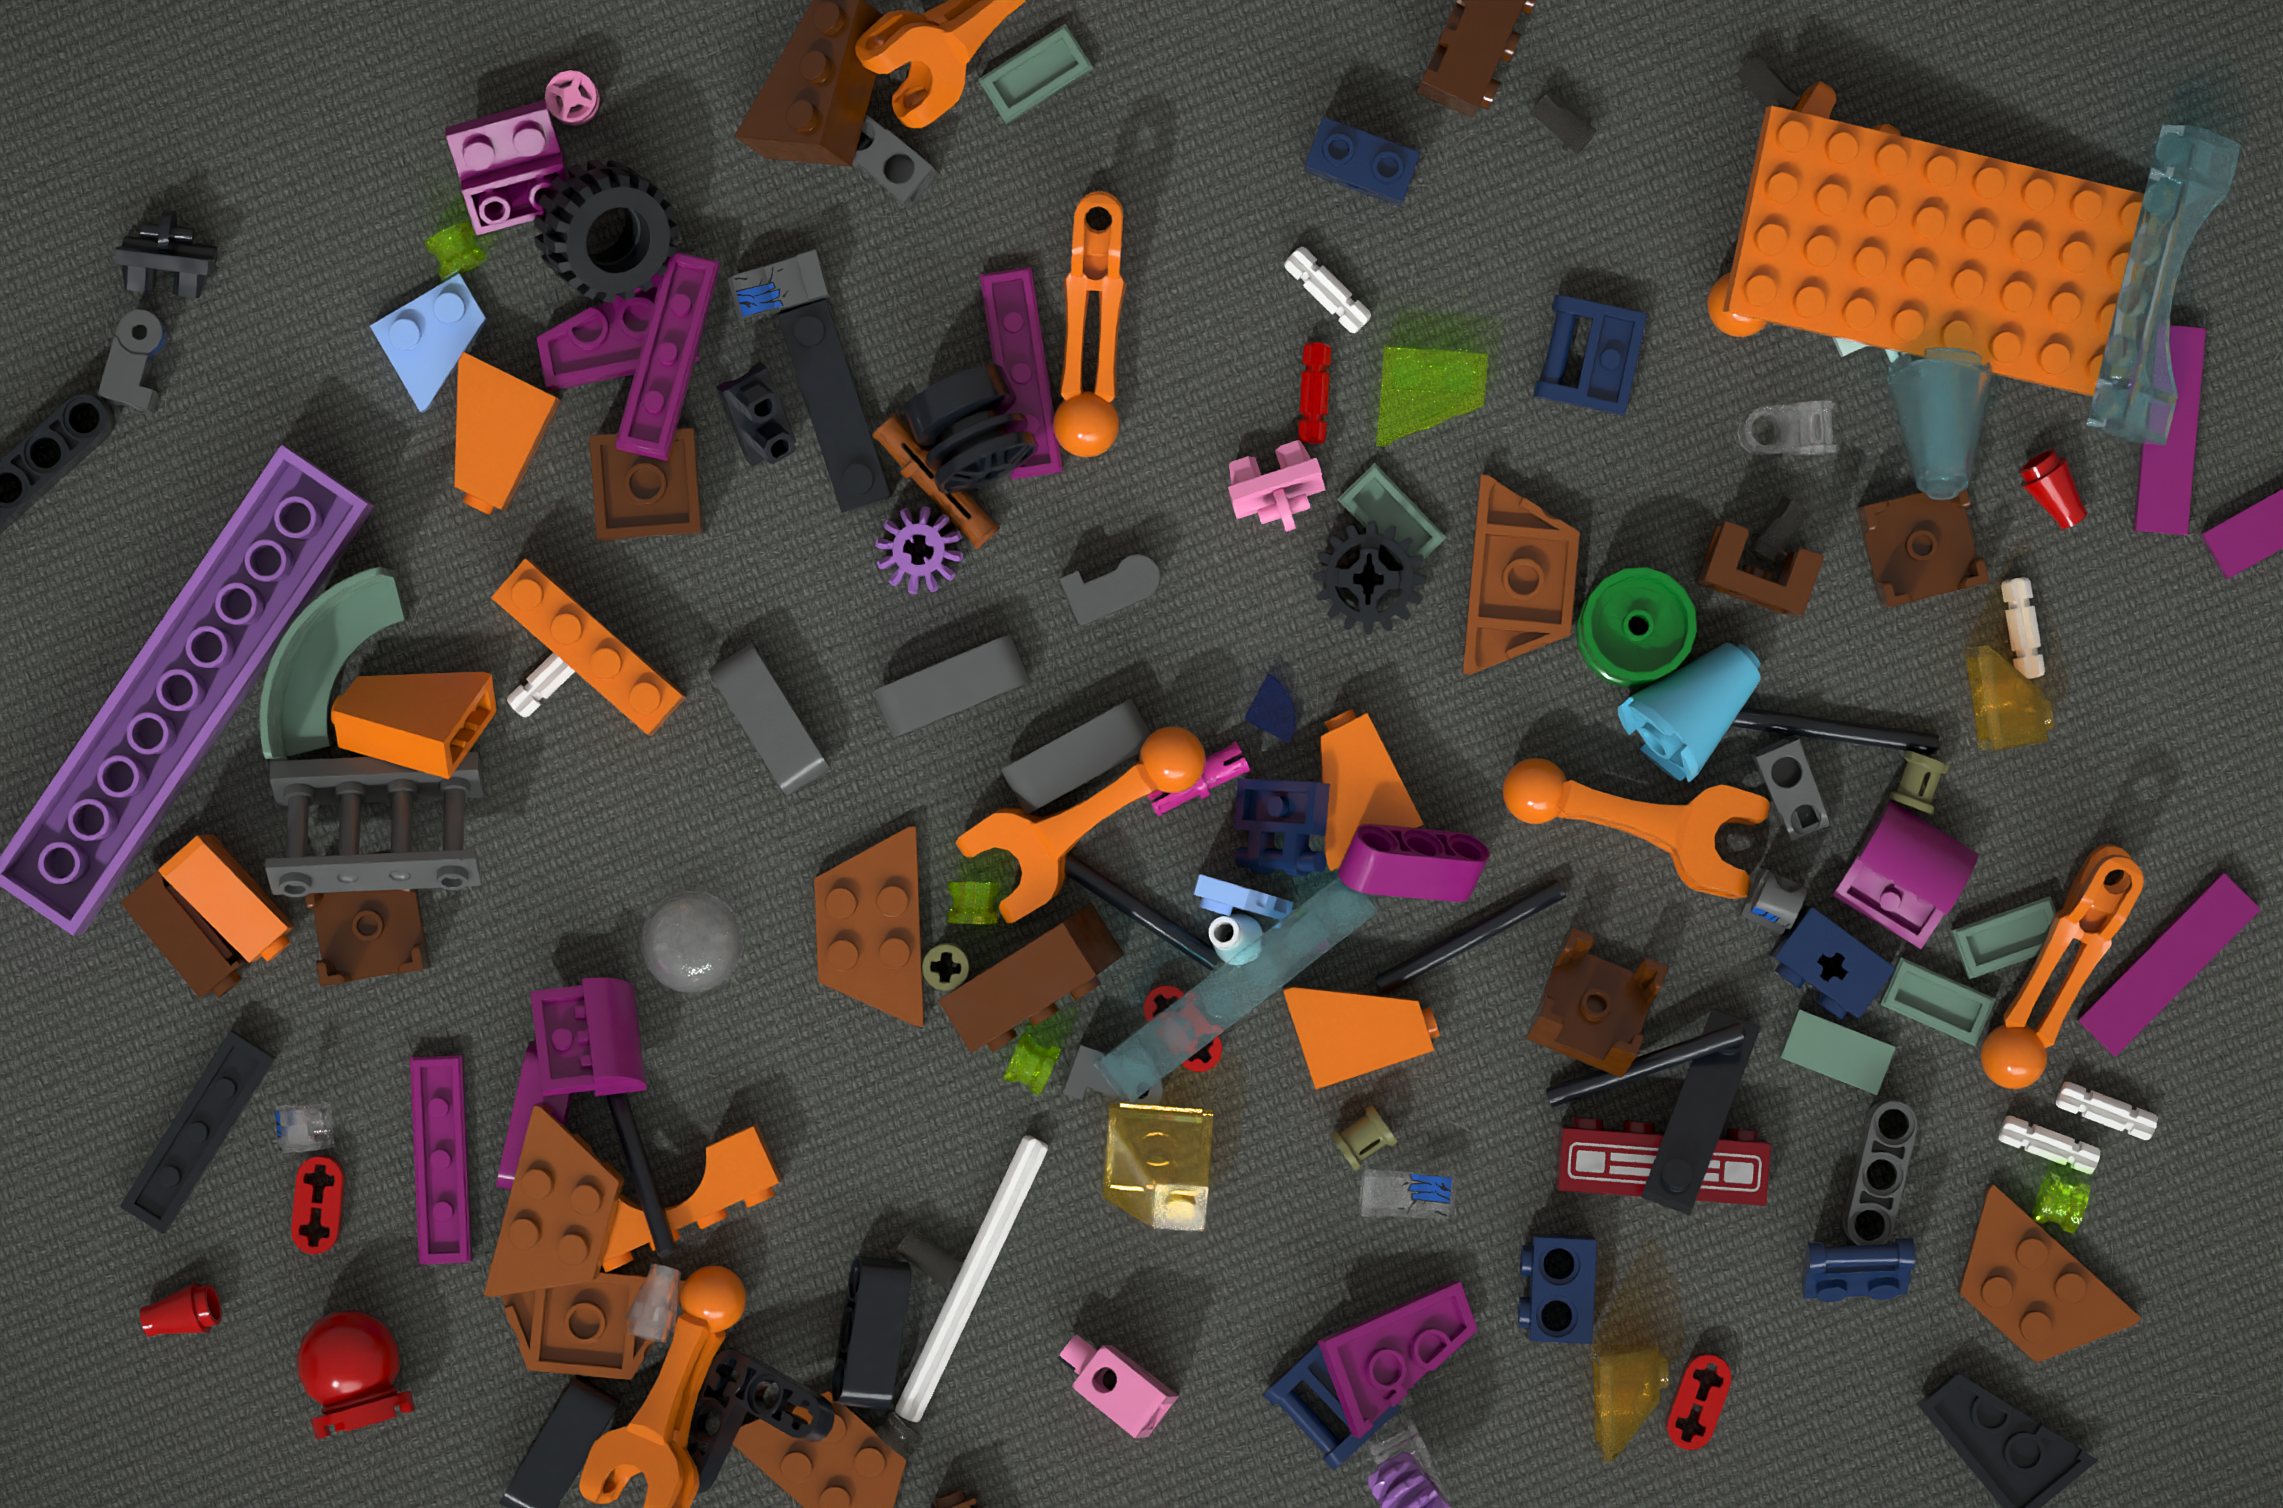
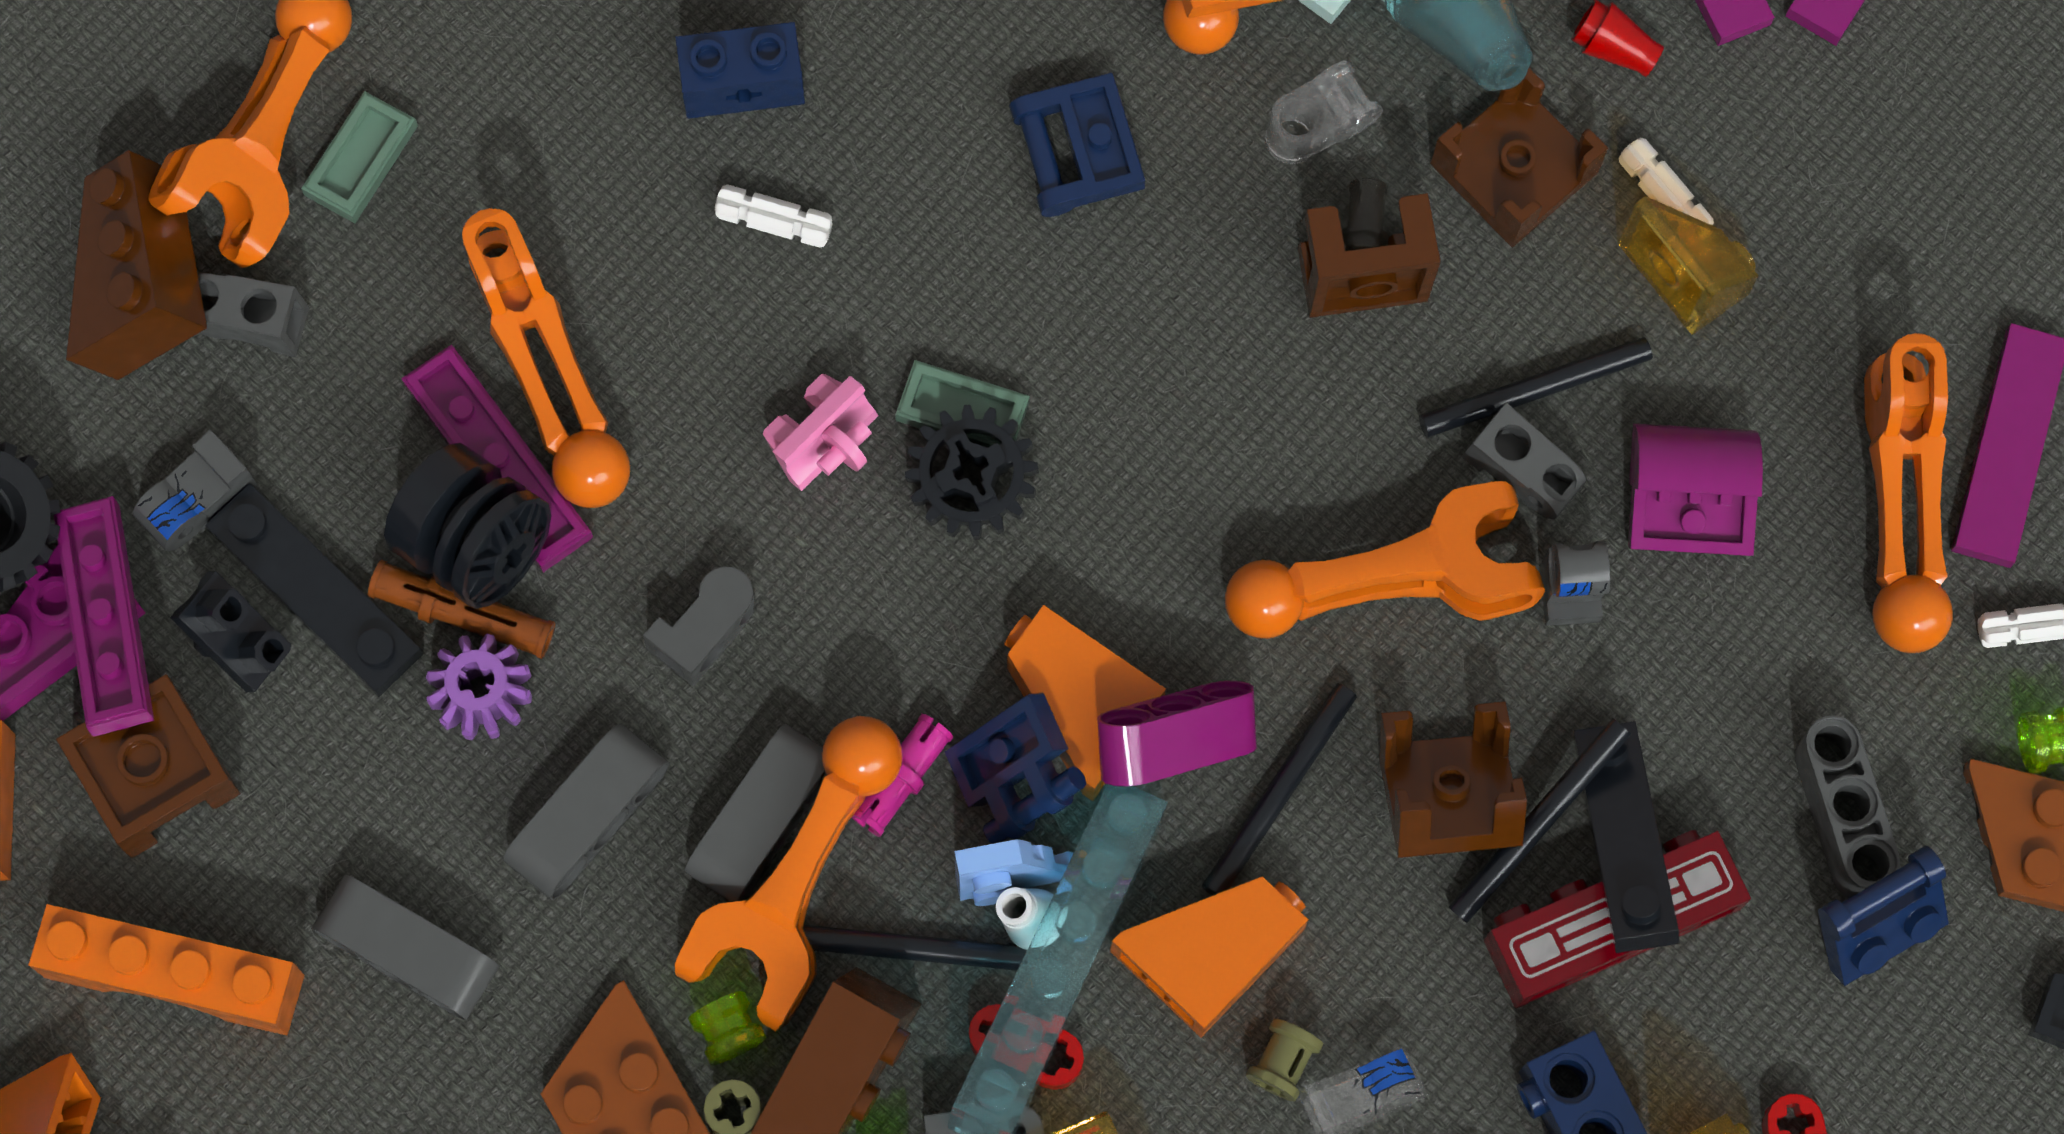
camera: 25 degrees left, 15 degrees down
(540, 684) = (135, 1040): white axle -> none
(1273, 710) = (944, 664): clear blue tile -> none
(1314, 393) = (814, 322): red axle -> none
(1427, 387) = (928, 259): clear neon green wing -> none
(1518, 578) = (1126, 399): dark orange wing -> none
(1613, 649) = (1275, 379): green wheel -> none
(1691, 709) = (1376, 436): medium azure cone -> none
(1837, 1052) = (1728, 709): sand green tile -> none
(1861, 973) = (1699, 604): dark blue brick -> none
(1919, 782) = (1652, 390): olive bush -> none
(1937, 1001) = (1800, 604): sand green tile -> none
(2004, 937) = (1829, 504): sand green tile -> none
(2049, 1144) = (2002, 689): white axle -> none

